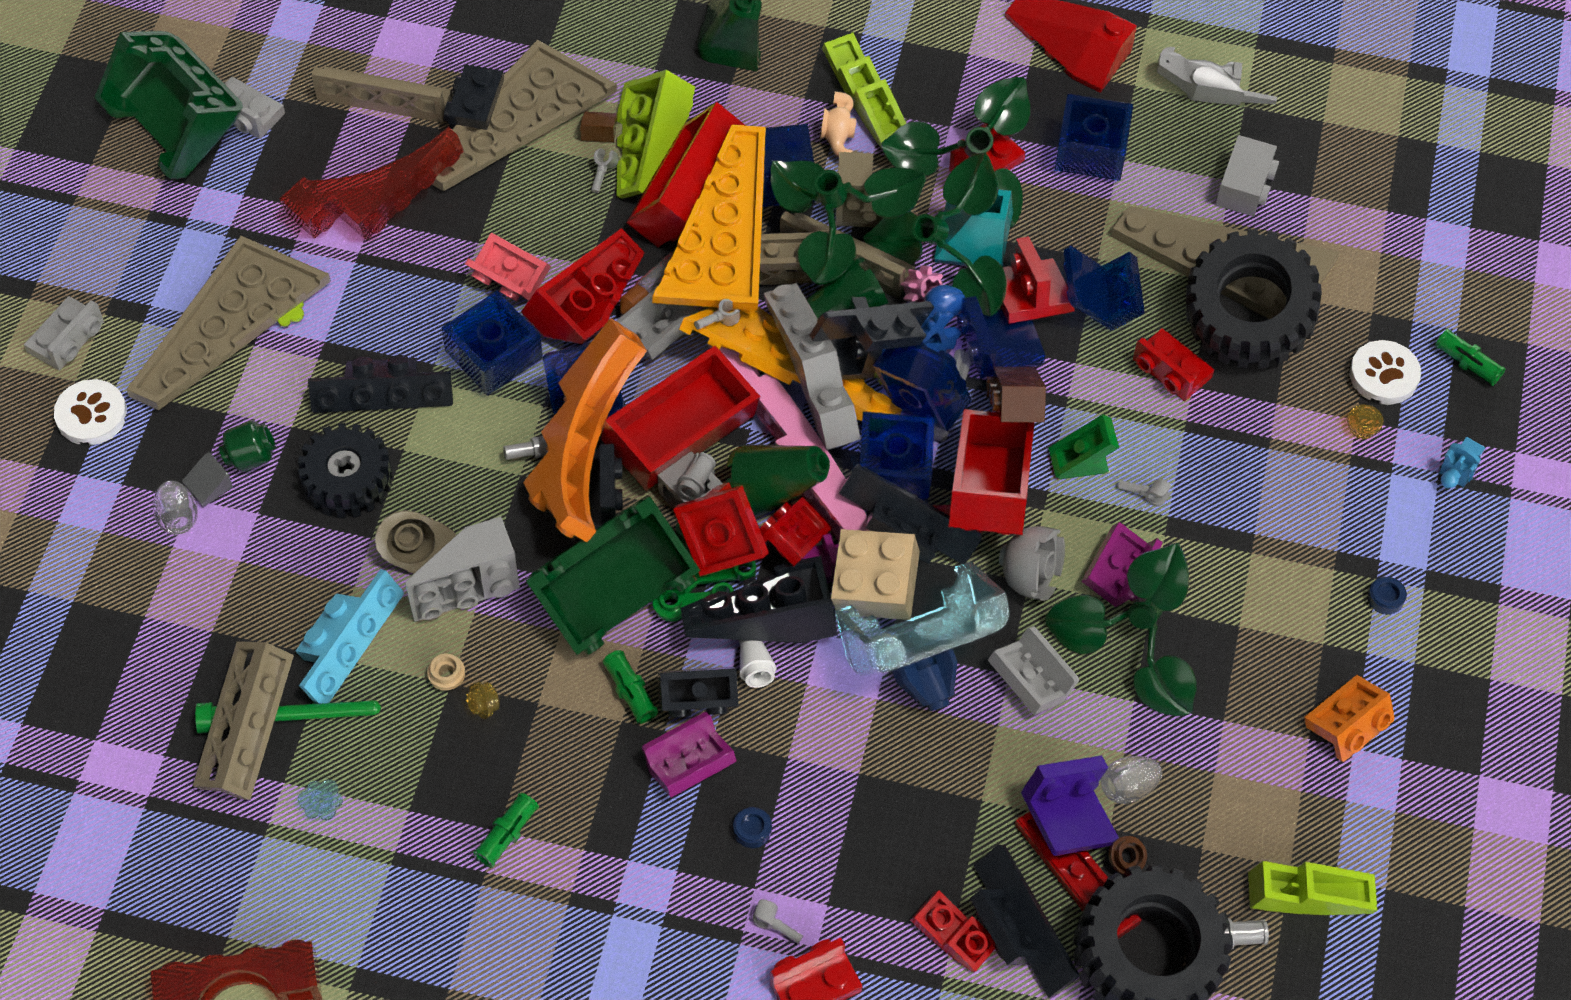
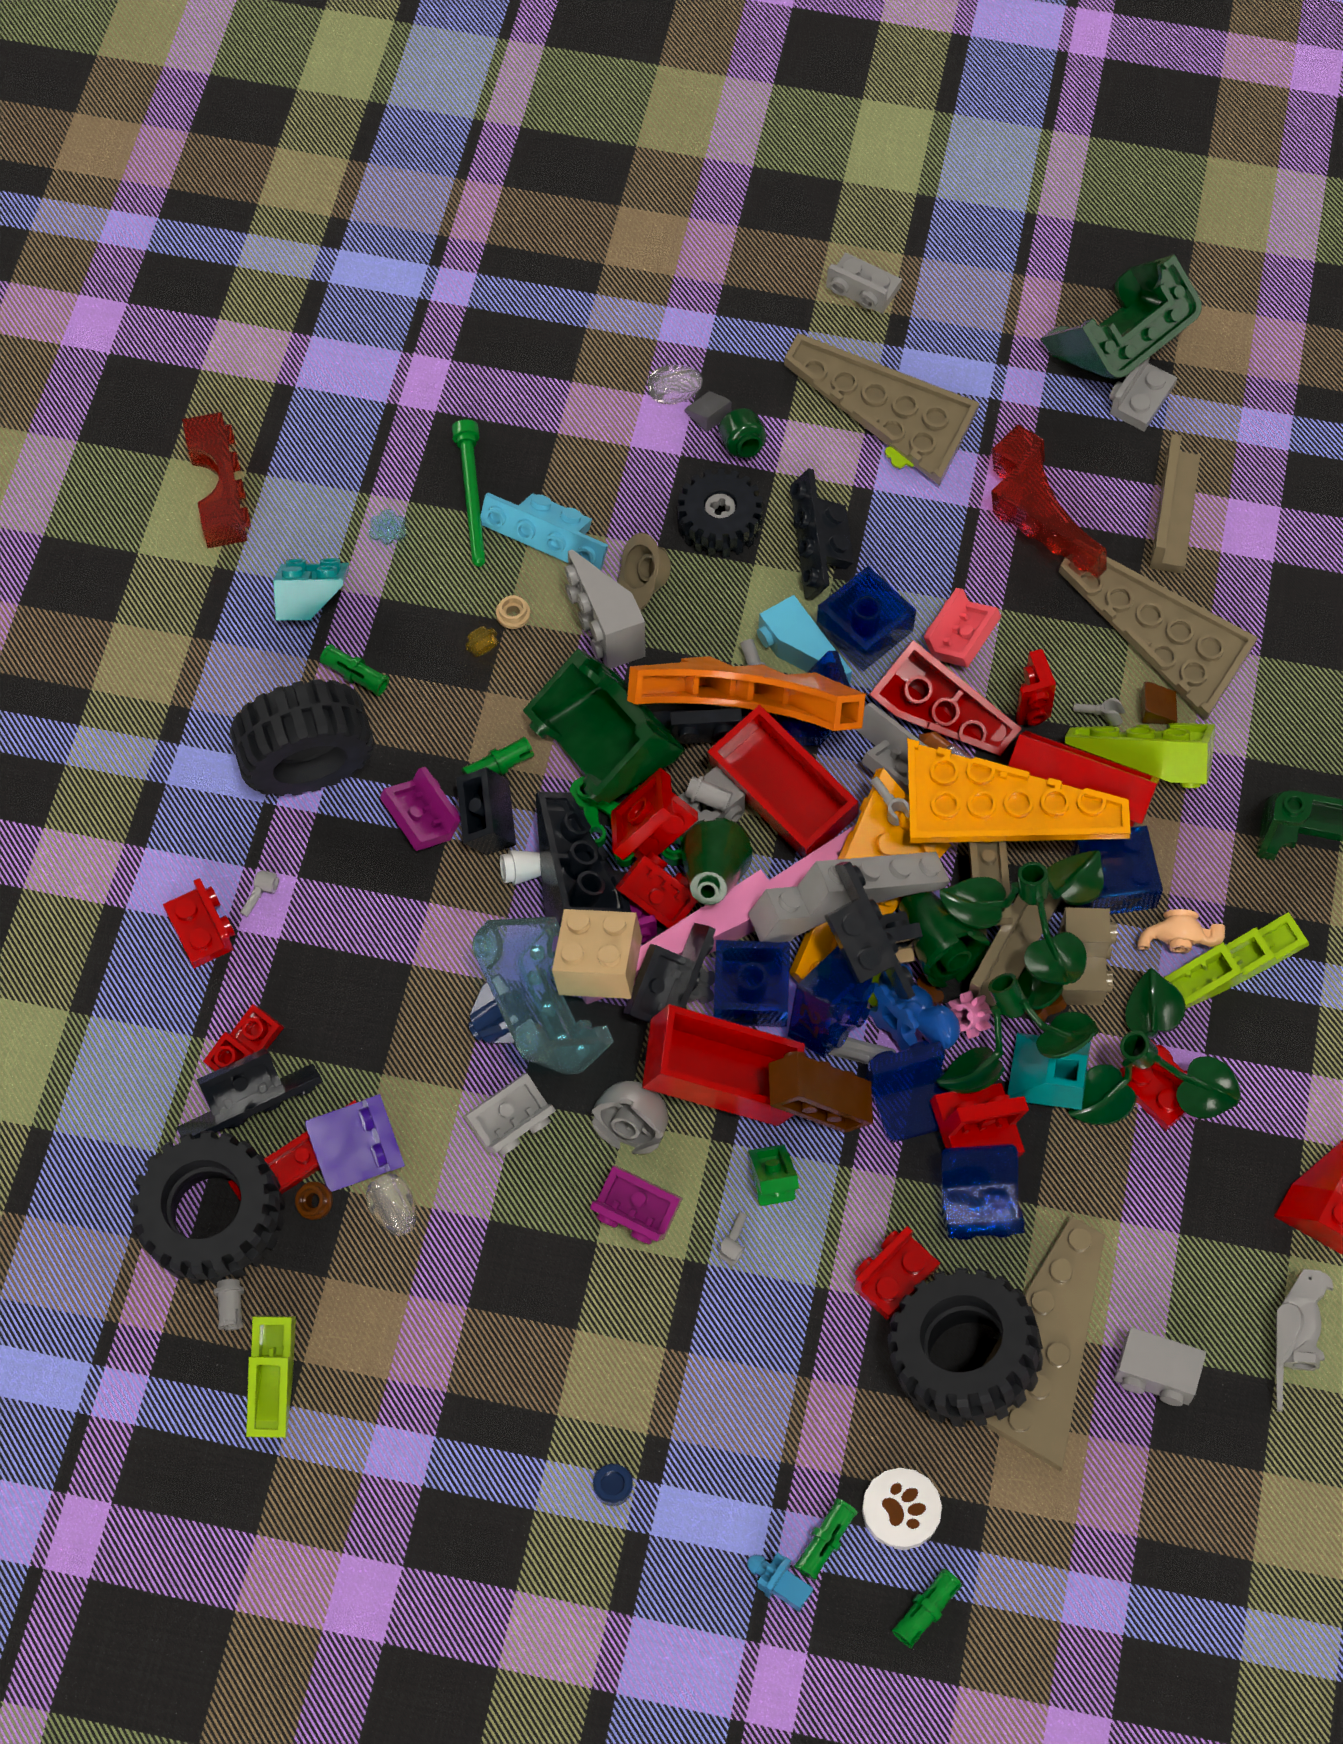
camera: 90 degrees right, 5 degrees up
(90, 412) = (778, 313): white tile -> none
(248, 719) = (455, 456): dark tan fence -> none
(399, 874) = (306, 588): none -> teal slope
(474, 97) = (1169, 583): black bracket -> none
(506, 406) = (794, 635): none -> medium azure slope
(587, 204) = (1037, 692): none -> red bracket
(621, 850) = (301, 737): none -> black tyre
(752, 827) = (354, 871): dark blue tile -> none
(1094, 137) = (1189, 1193): clear blue brick -> none
(1161, 585) = (569, 1218): dark green plant -> none
(1352, 716) = (462, 1429): orange bracket -> none
(1365, 421) = (832, 1478): clear yellow plate -> none
(1420, 427) = (825, 1539): none -> green pin

